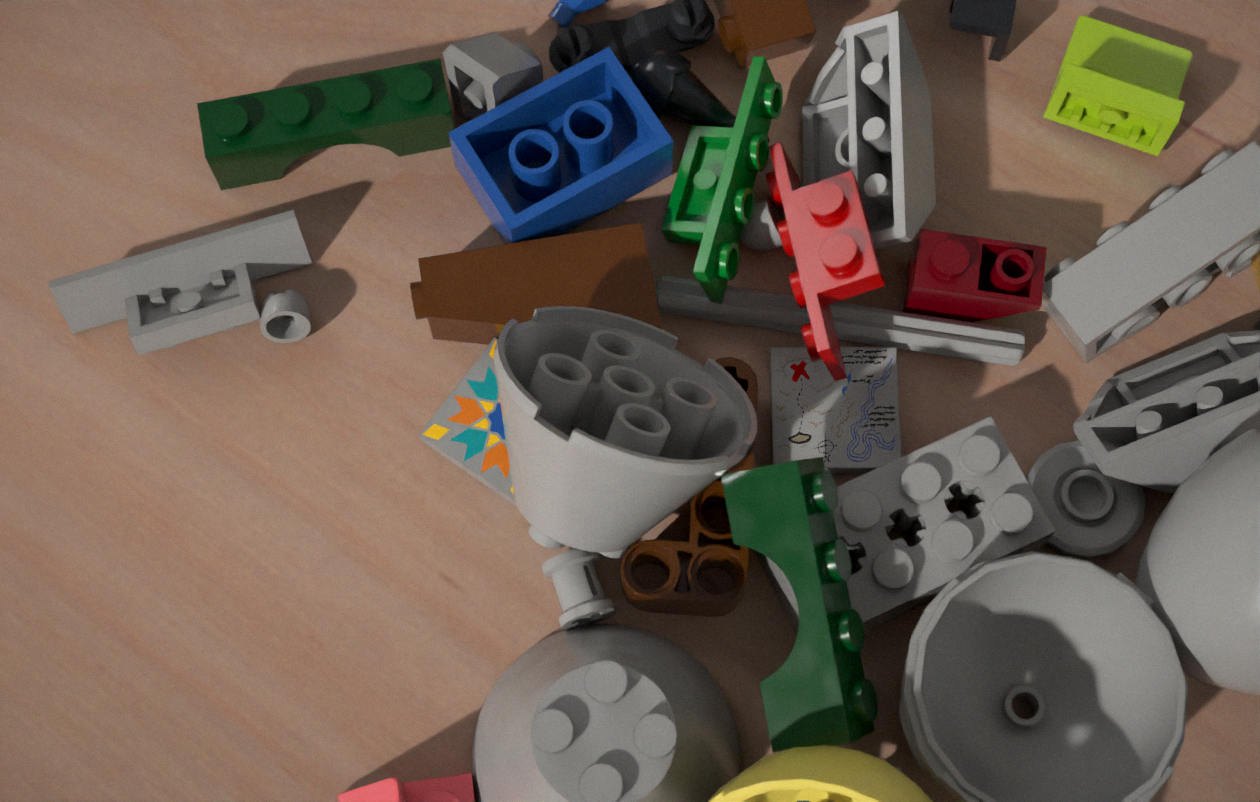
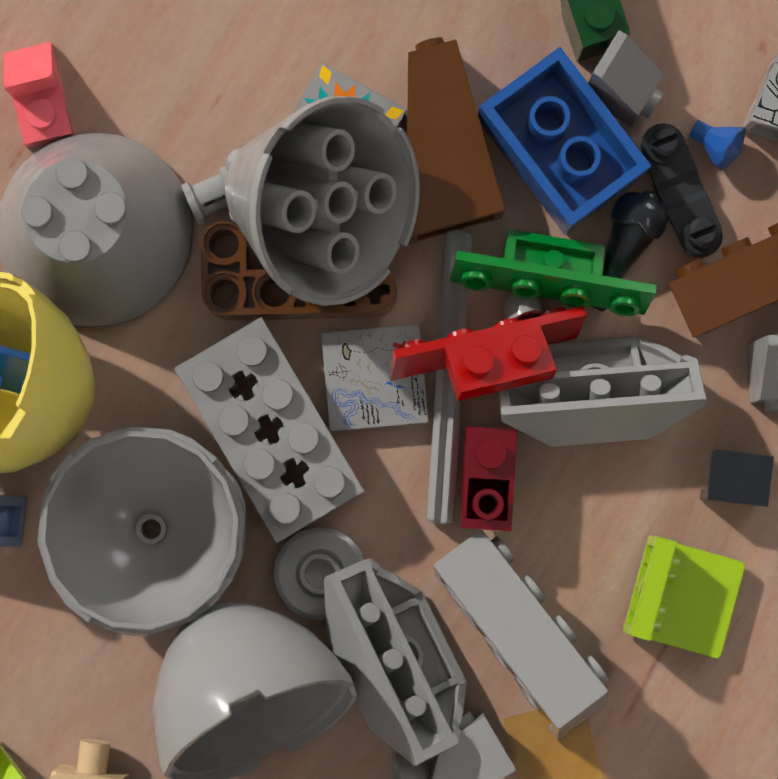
camera: 85 degrees right, 15 degrees up
(822, 685) = (249, 333): dark green arch -> none

